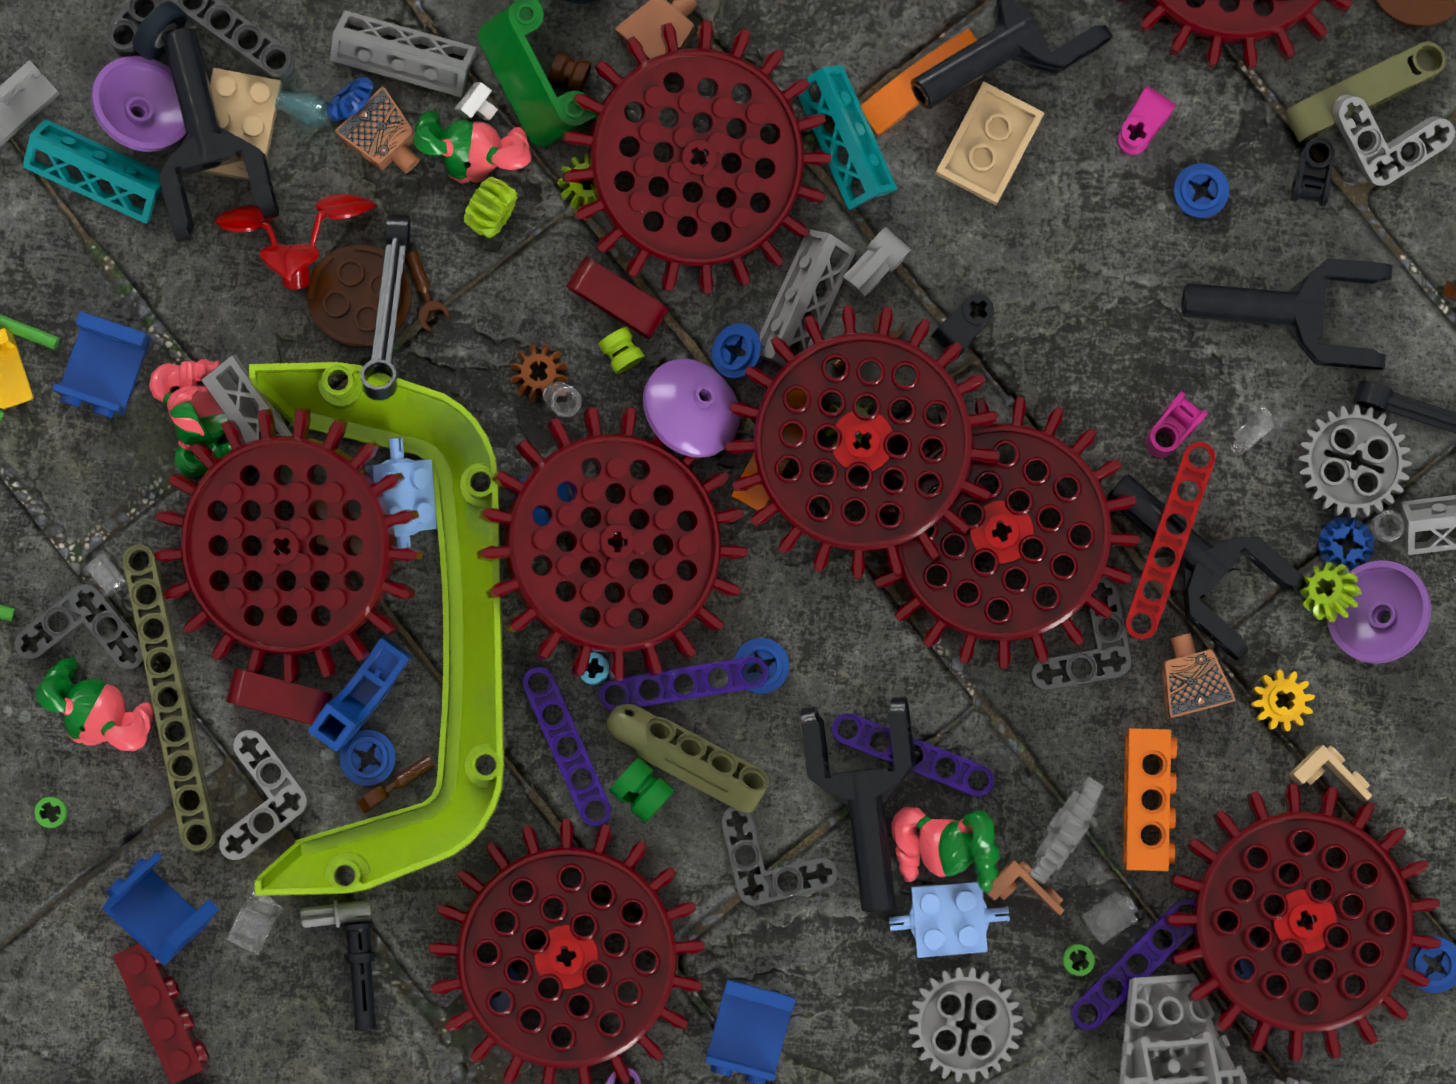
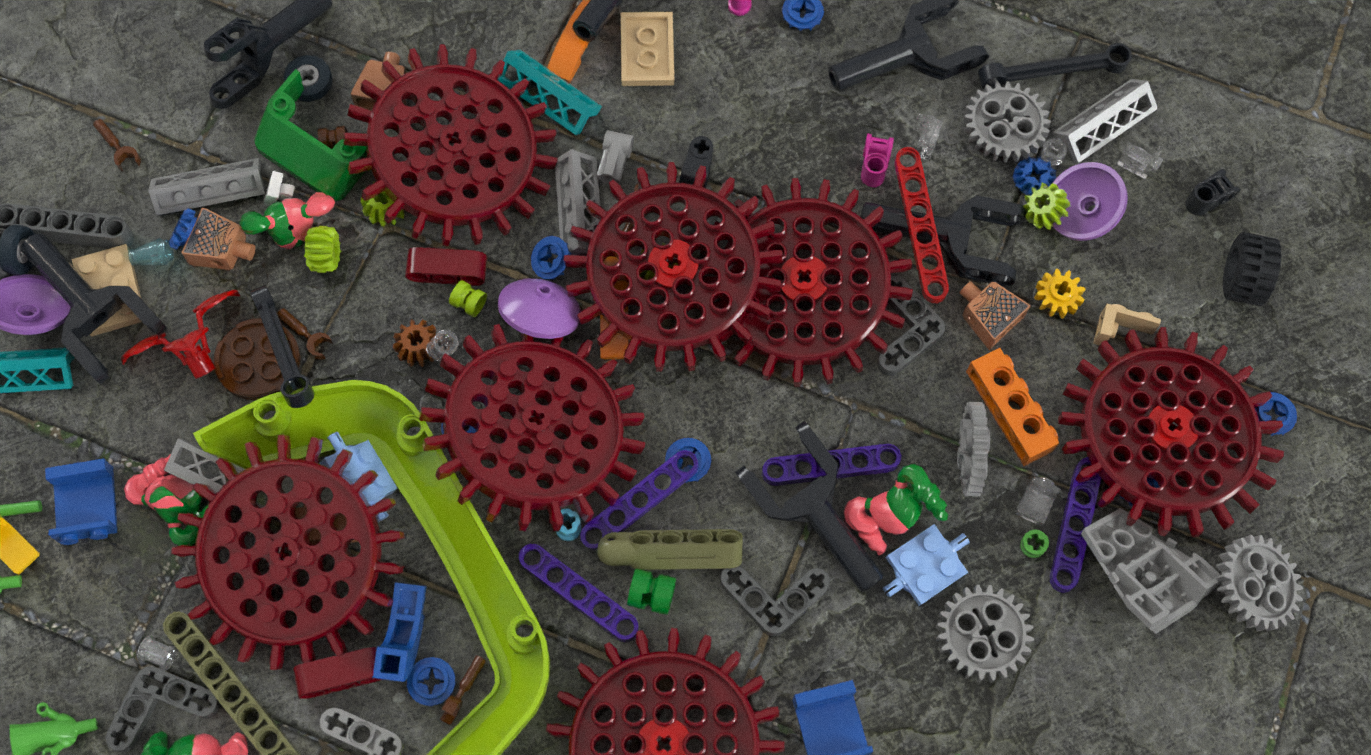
camera: 30 degrees left, 15 degrees down
(1005, 885) = (961, 503): nougat bracket -> none

